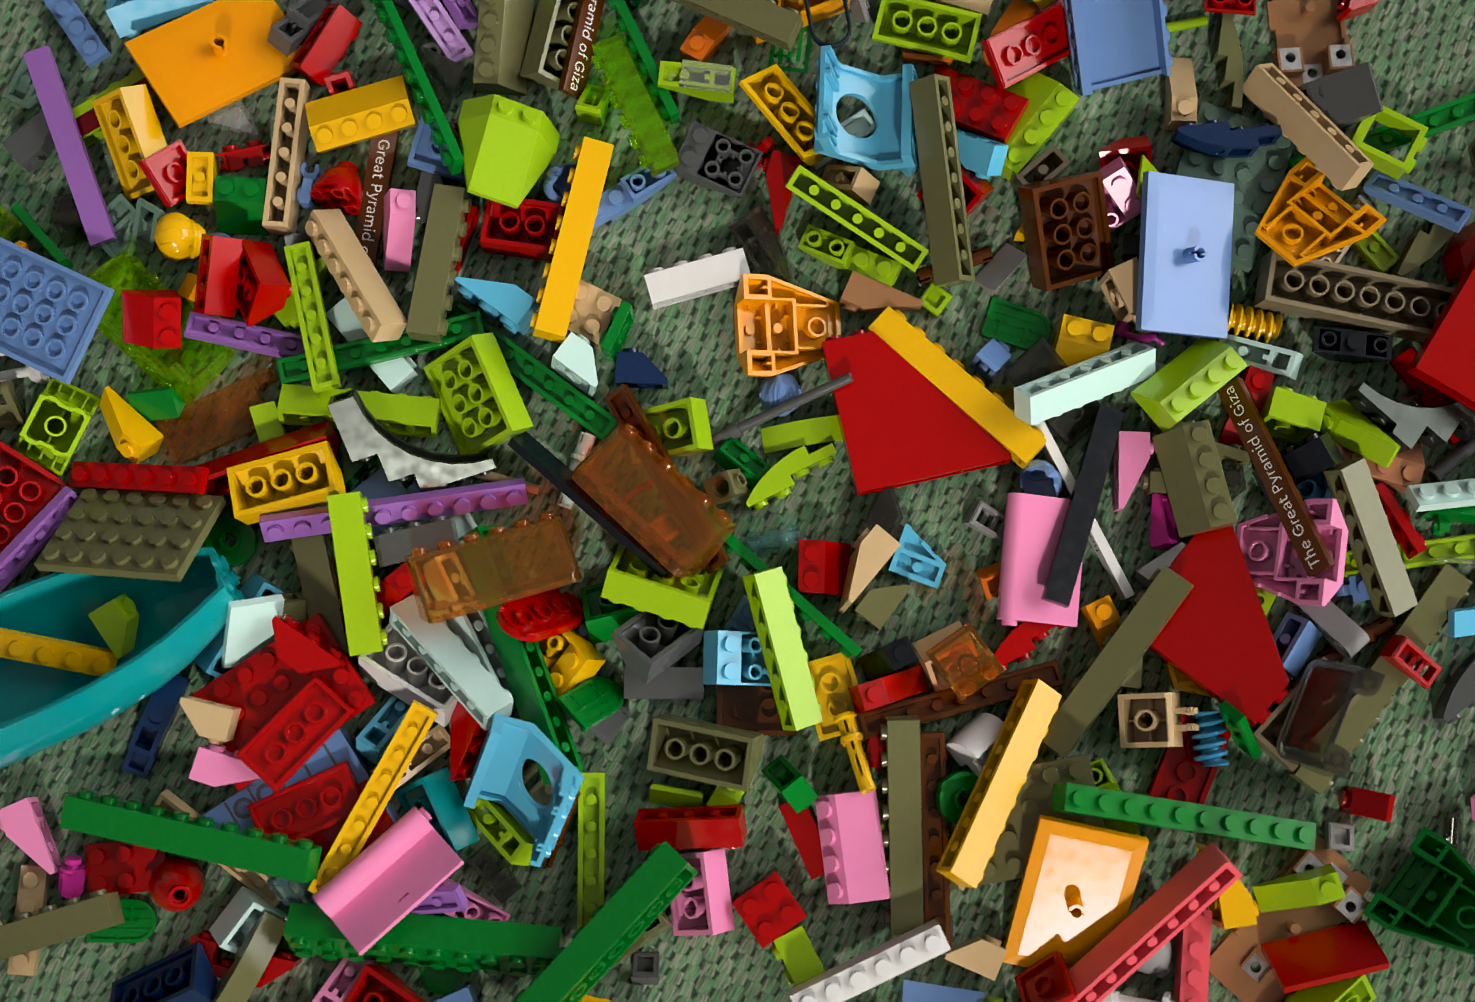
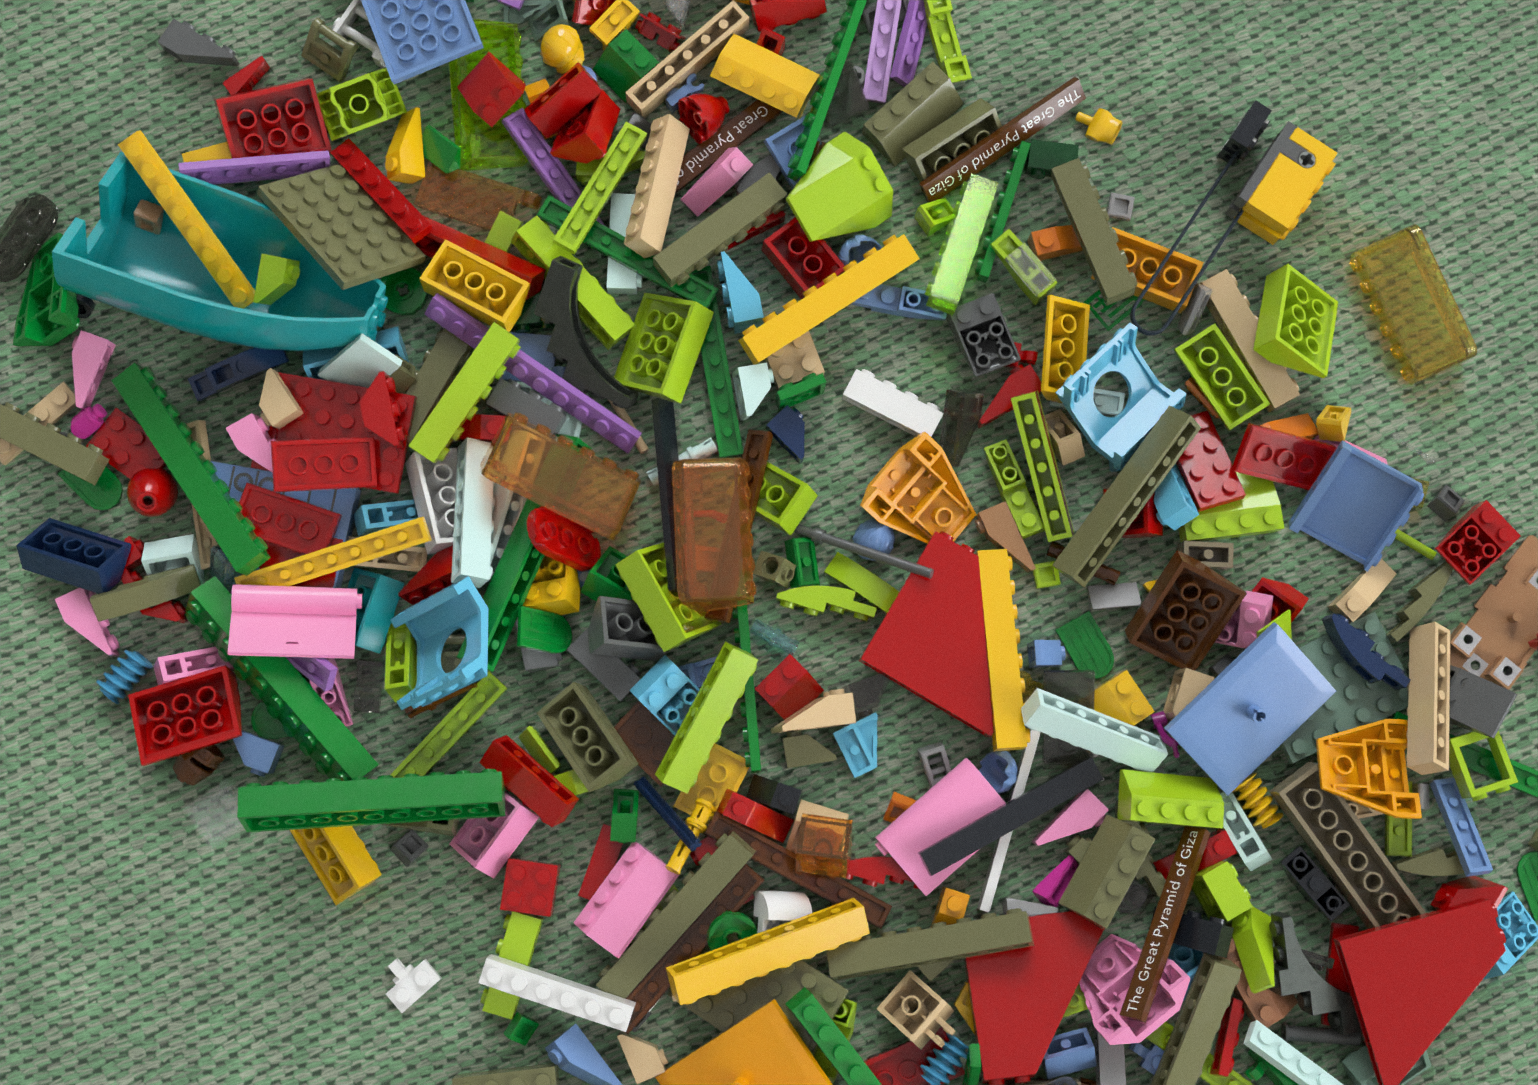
camera: 35 degrees right, 0 degrees up
(822, 751) = (667, 814): none -> dark blue axle

